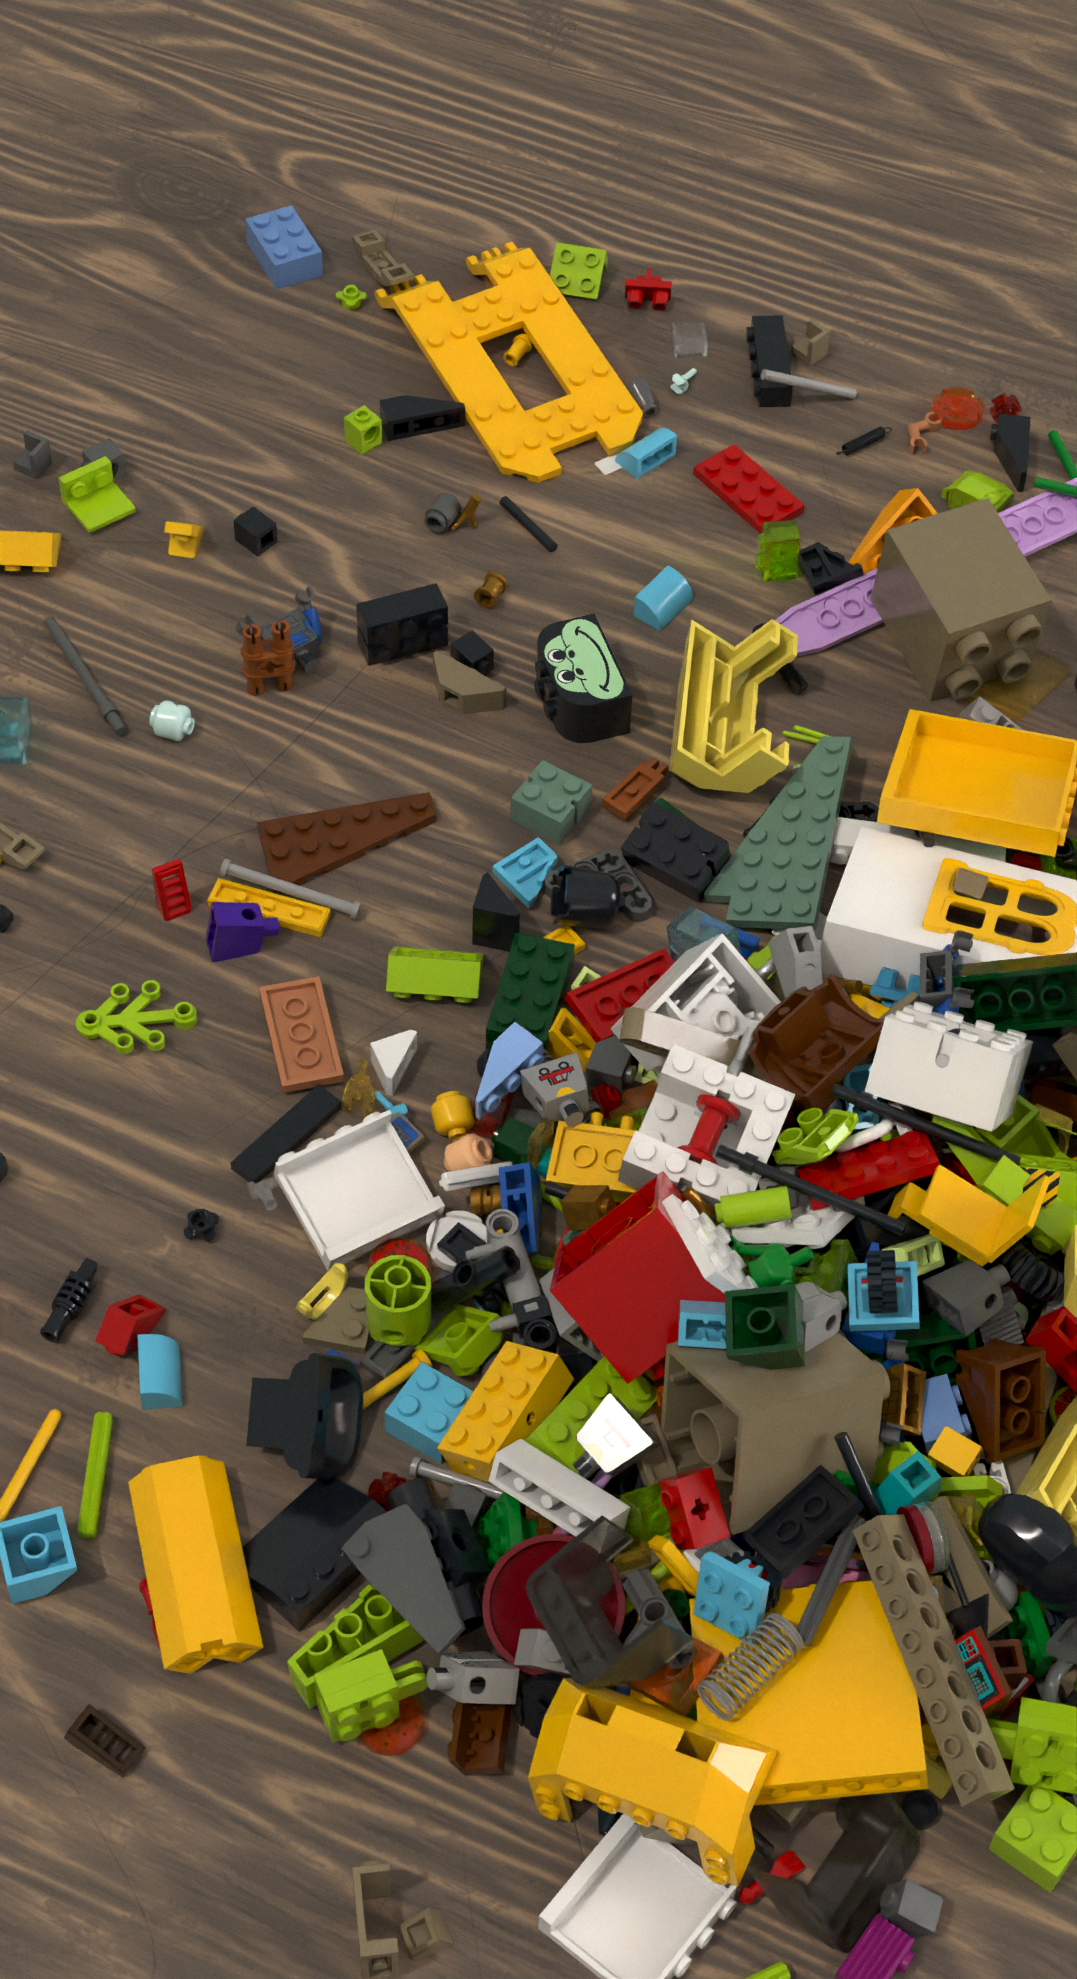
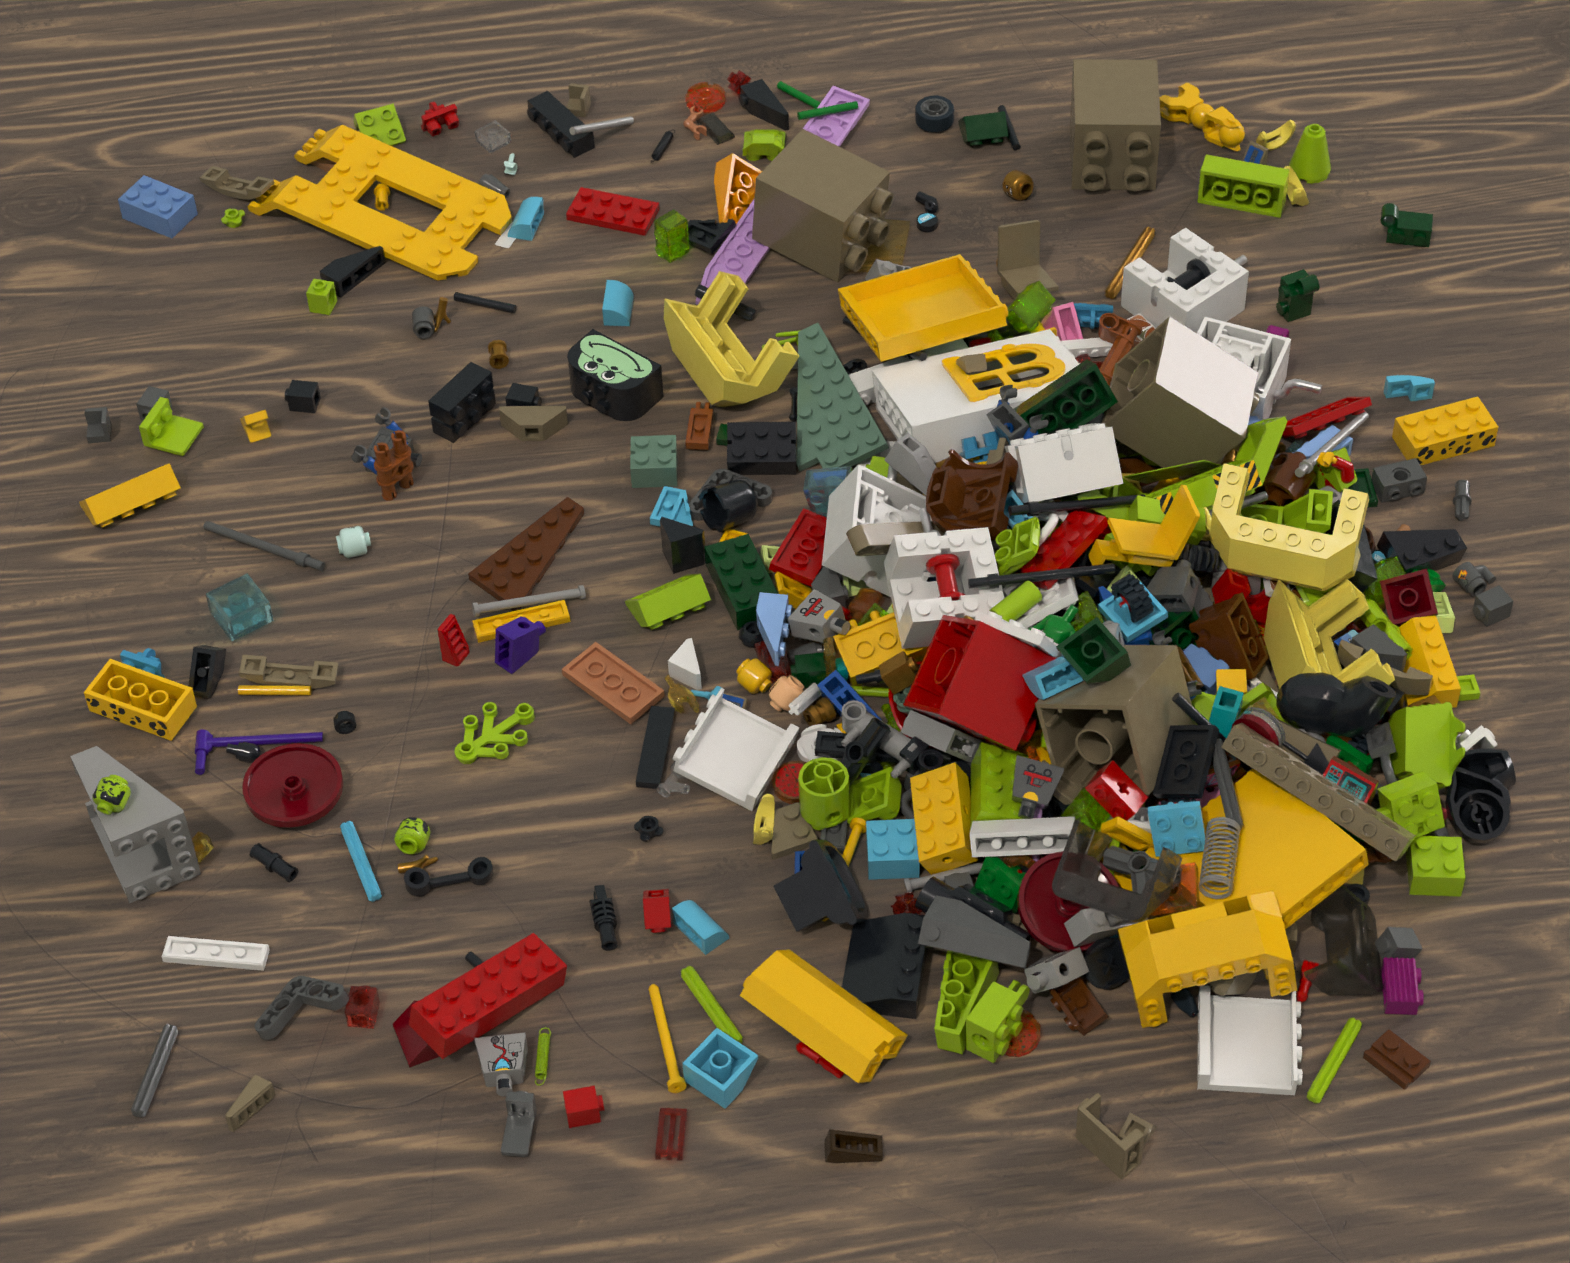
camera: 30 degrees left, 5 degrees down
(939, 450) = (715, 128): none -> clear smoke tile

